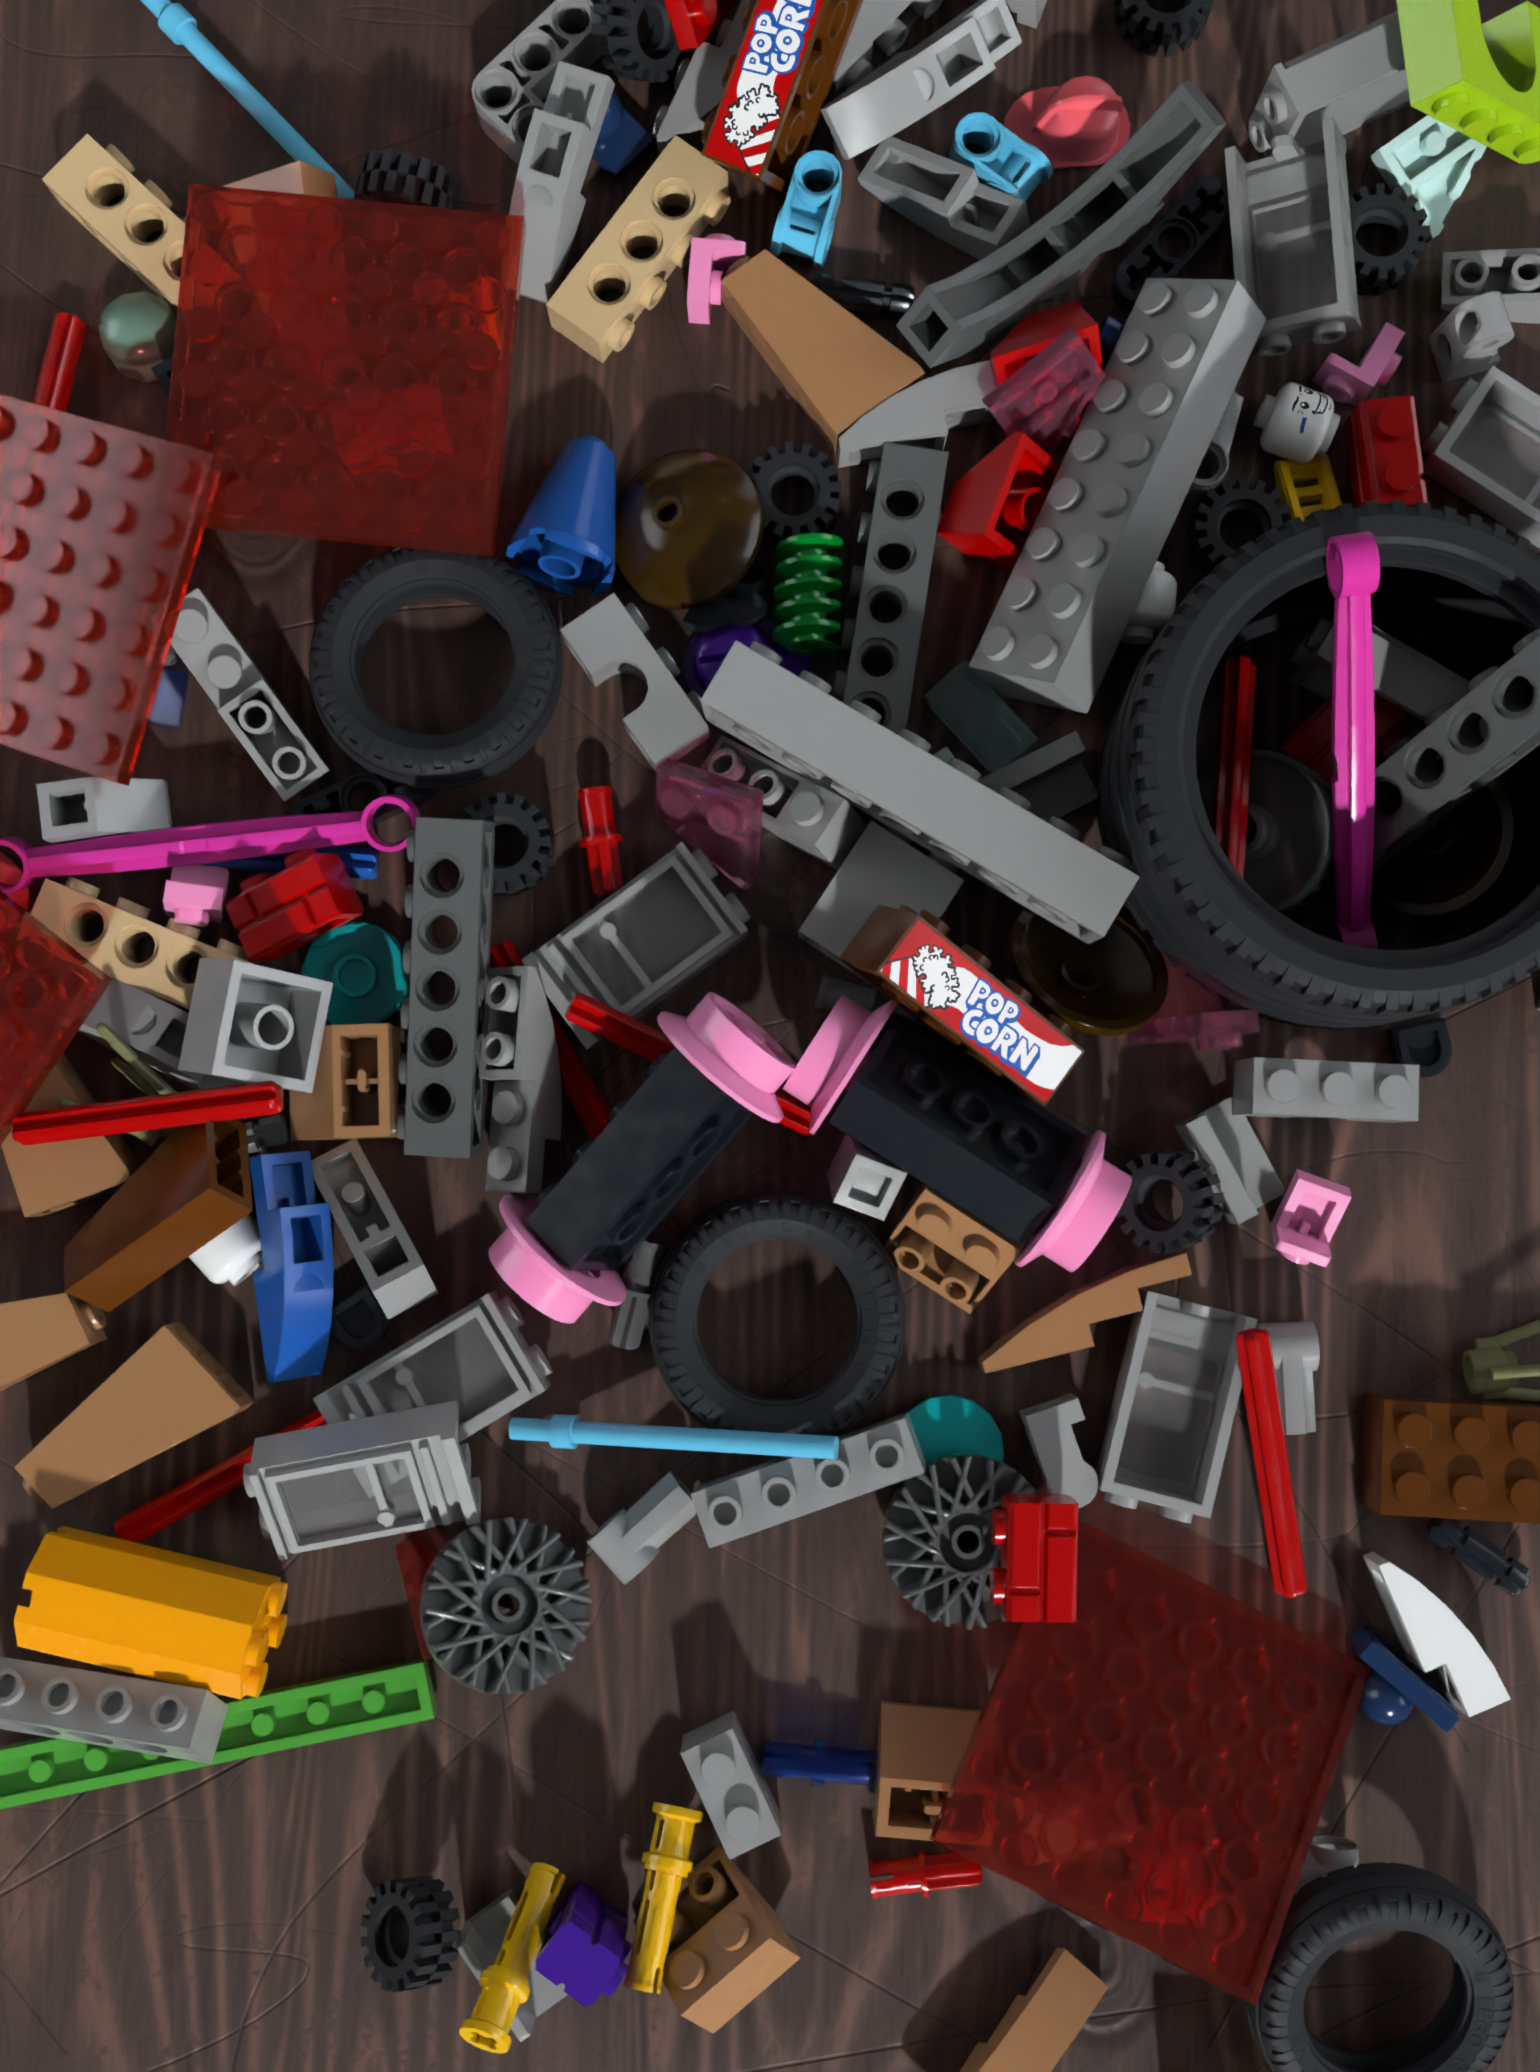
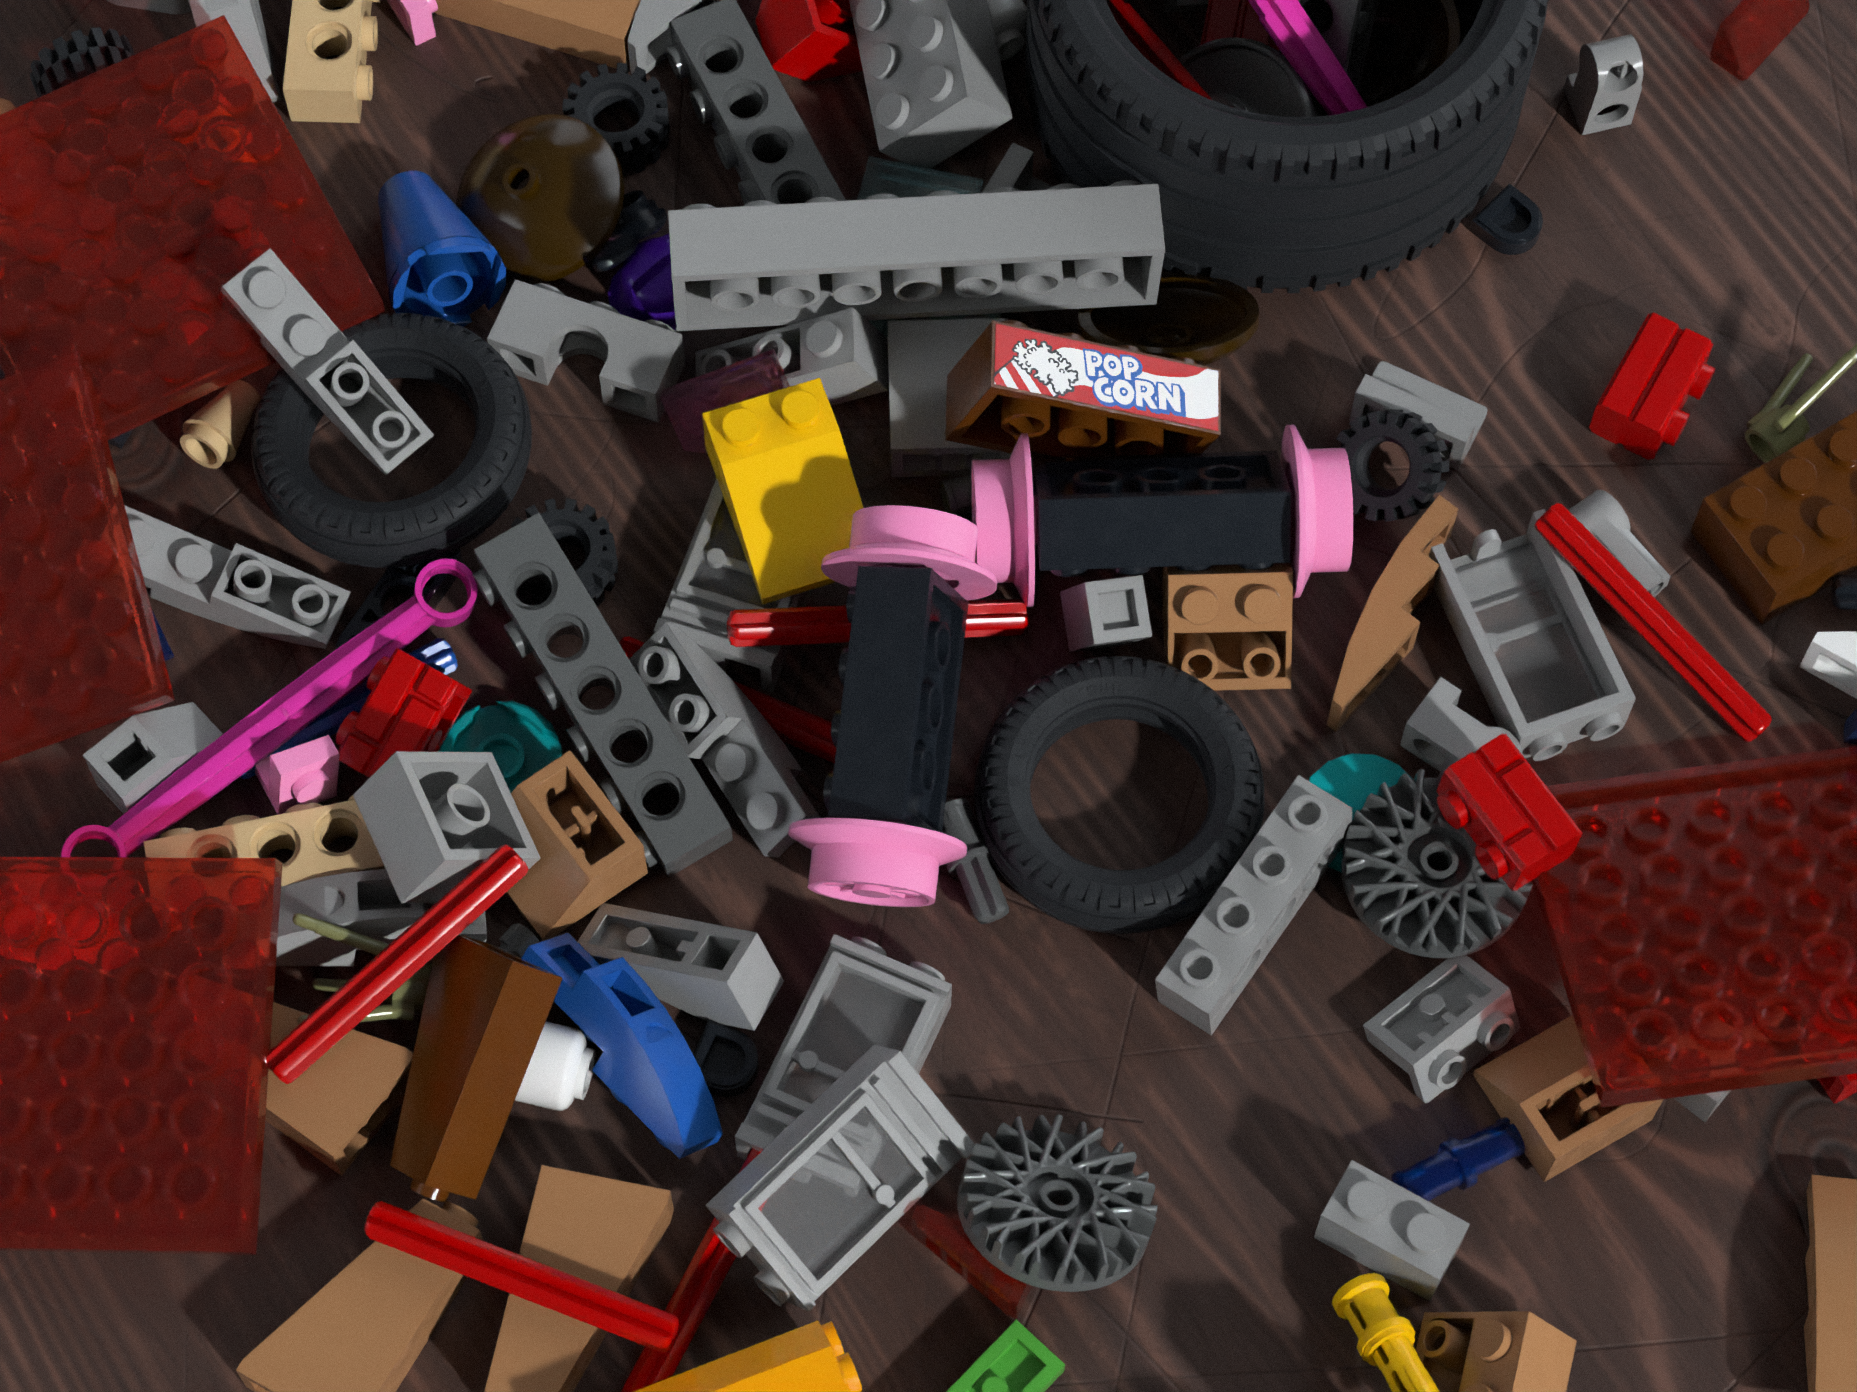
camera: 35 degrees left, 20 degrees down
(89, 1405) = (521, 1276): none -> red axle
(325, 563) = (219, 426): none -> tan cone
(405, 584) = (326, 363): none -> light grey slope
(568, 1432) = (998, 1023): medium azure bar -> none
(601, 840) = (648, 500): red axle -> none
(634, 1535) = (1132, 1072): light grey piece -> none
(690, 919) = (784, 484): none -> yellow slope
(803, 593) = (682, 170): green piece -> none
(885, 1655) = (1445, 1025): none -> light grey bracket
(923, 1874) = (1631, 1197): red axle -> none
(1209, 1030) = (1309, 311): clear pink wing -> none
(1309, 1218) = (1523, 409): bright pink bracket -> none
(1326, 1089) = (1419, 310): light grey arch -> none
(1424, 1267) = (1652, 386): none -> red brick

